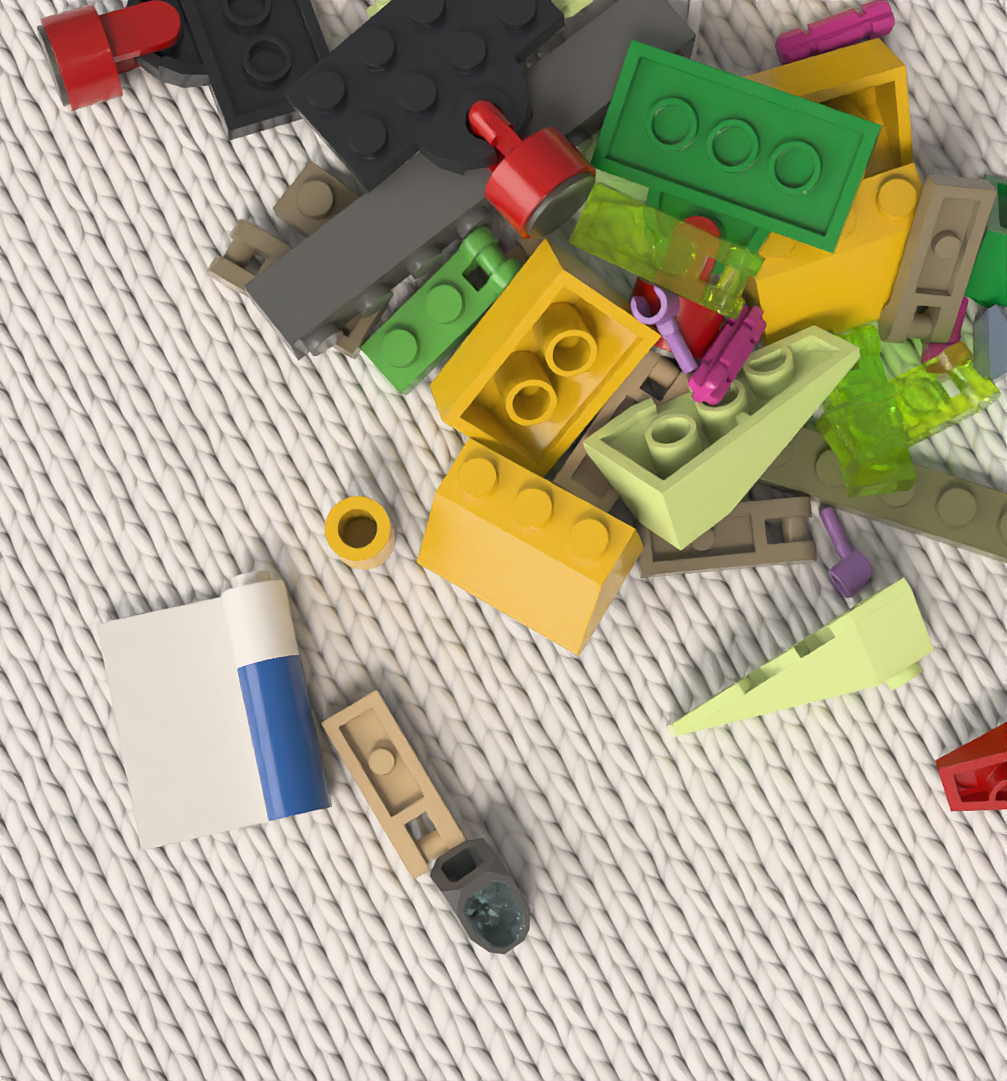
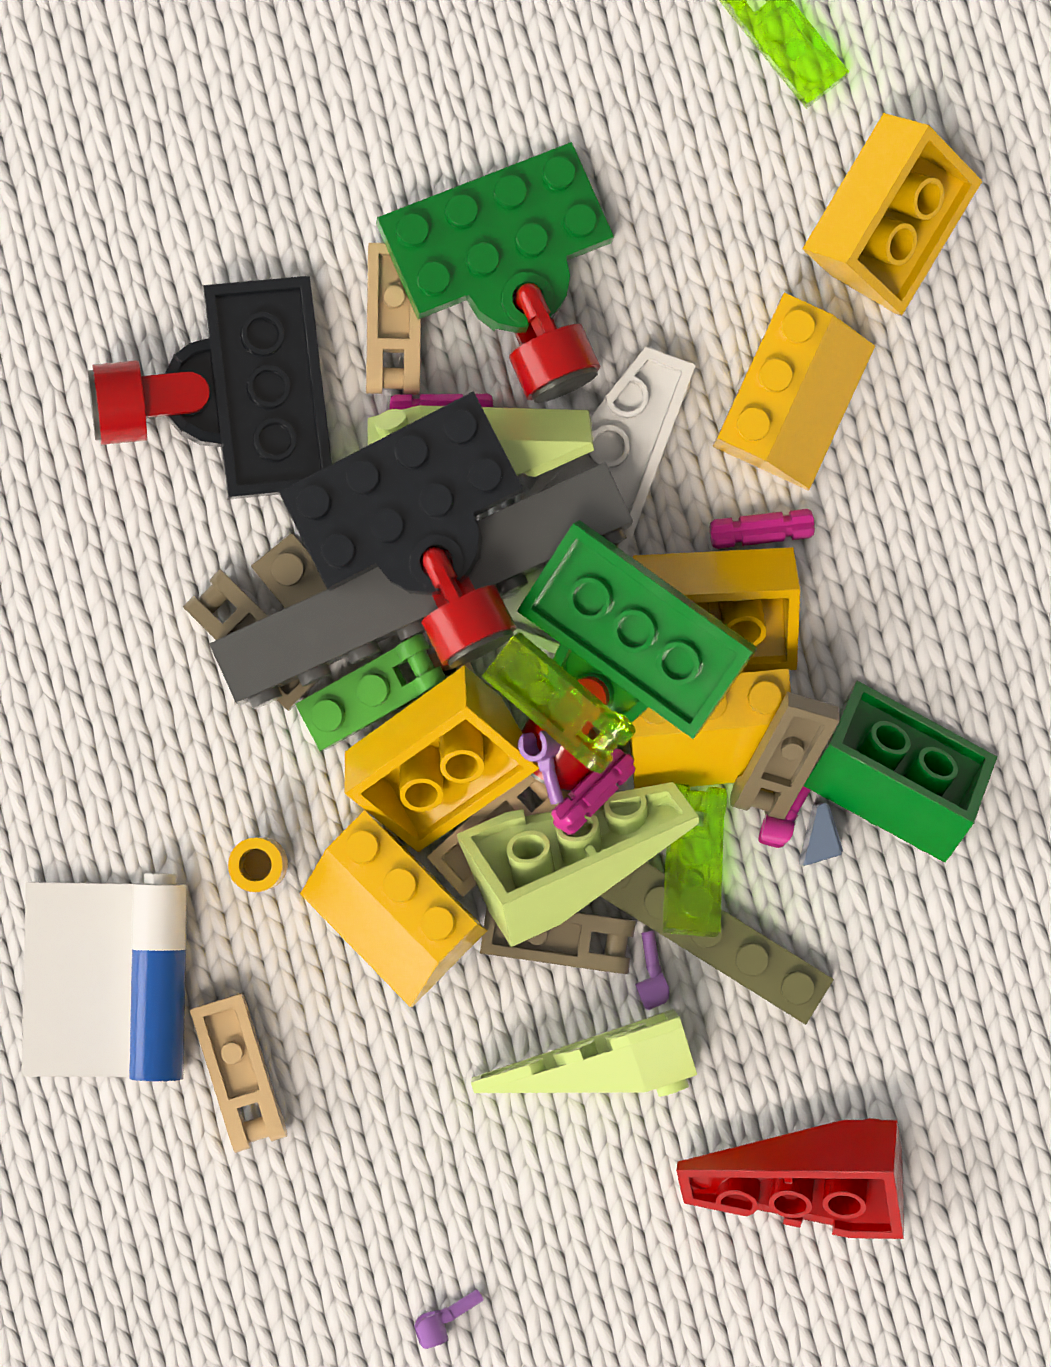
camera: 10 degrees right, 5 degrees up
(482, 896) = (285, 1180): dark grey rock -> none
(694, 1028) = (431, 1327): none -> medium lavender hand
(906, 409) = (725, 874): clear neon green plate -> none

